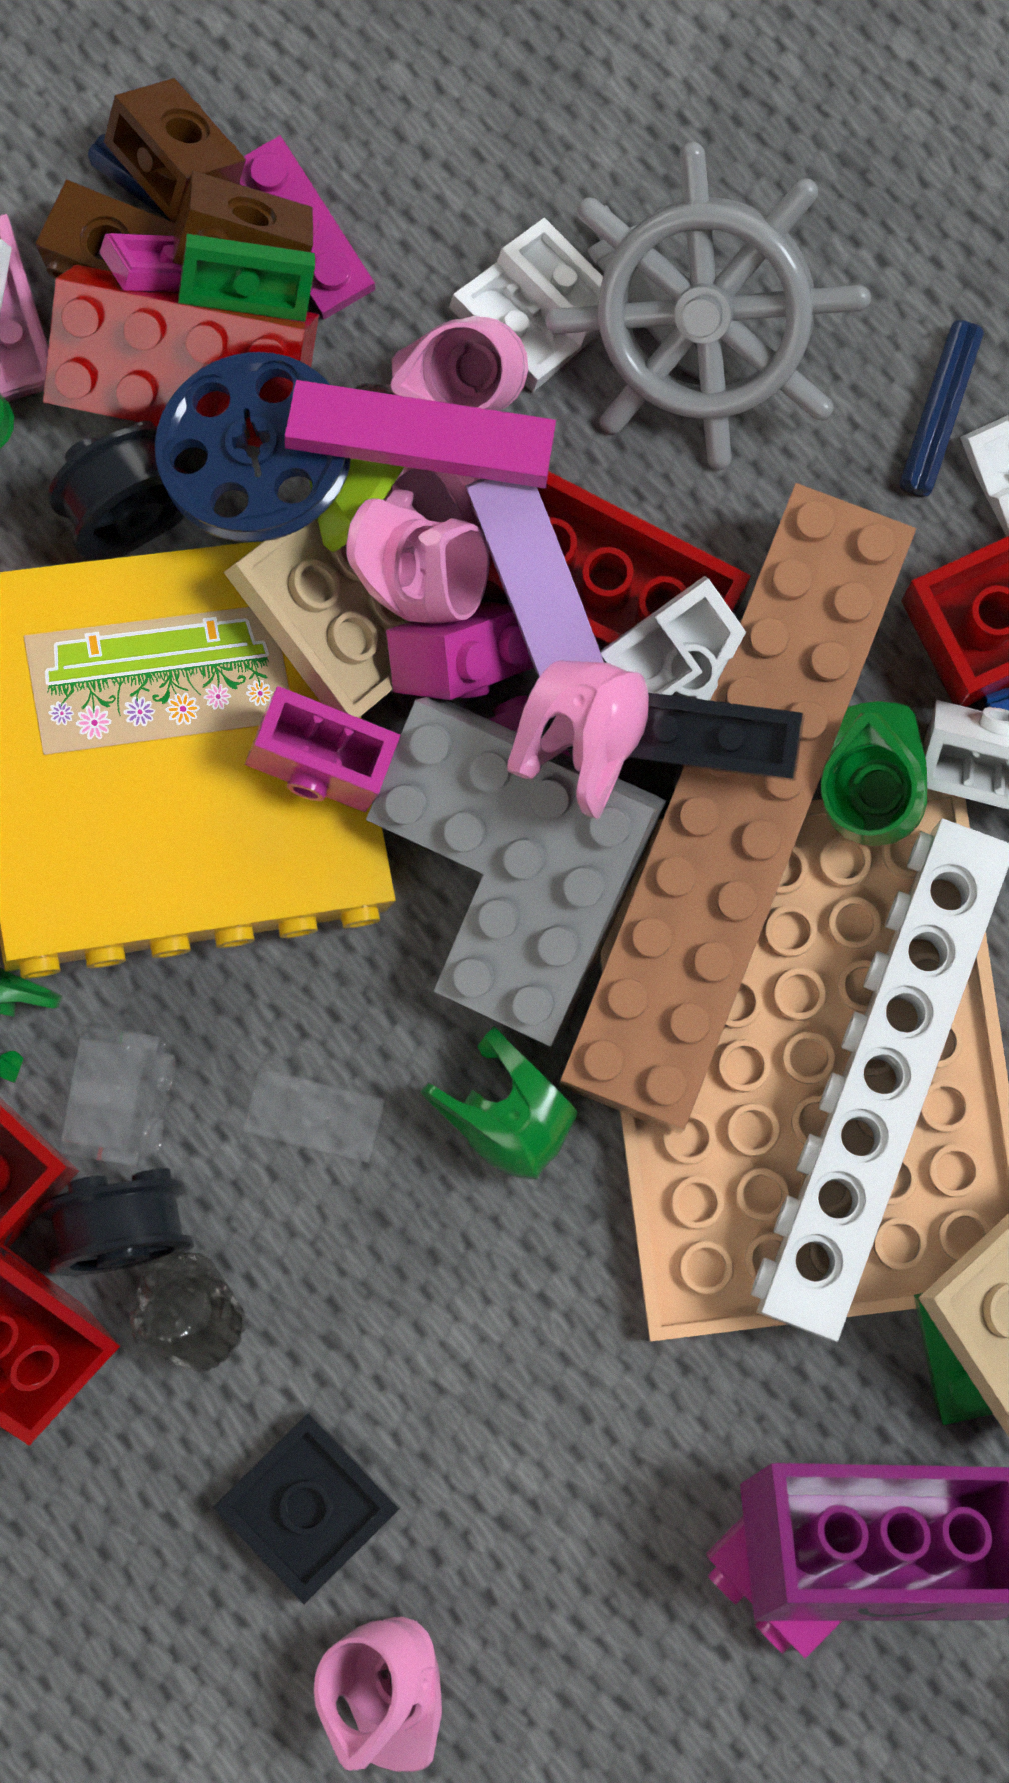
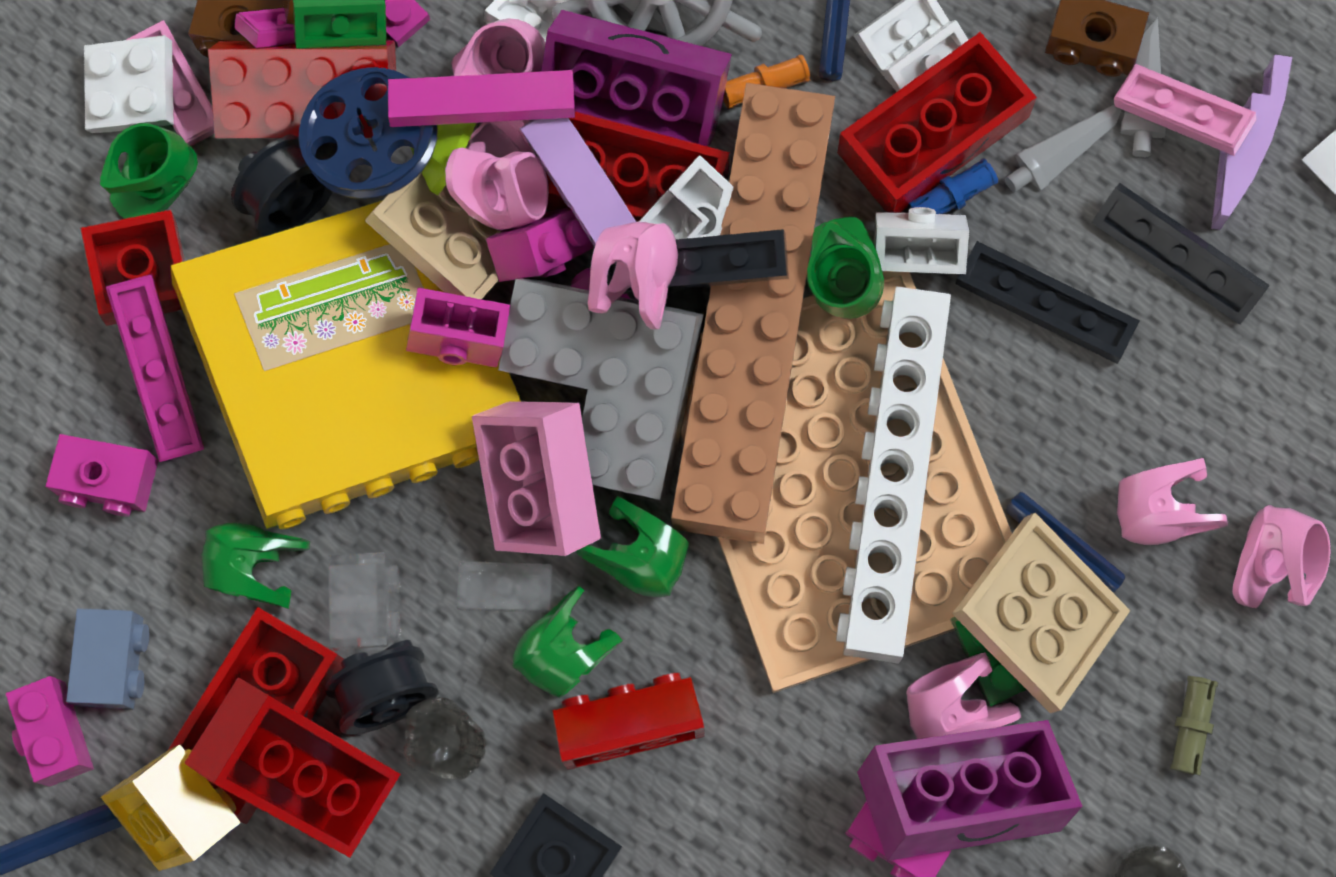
camera: 10 degrees left, 5 degrees down
(355, 1225) = (550, 654): none -> green helmet
(388, 982) = (536, 477): none -> bright pink brick
(442, 1340) = (627, 721): none -> red slope
(646, 439) = (639, 76): none -> magenta brick
(825, 475) = (778, 75): none -> orange pin
(876, 1422) = (937, 703): none -> bright pink helmet

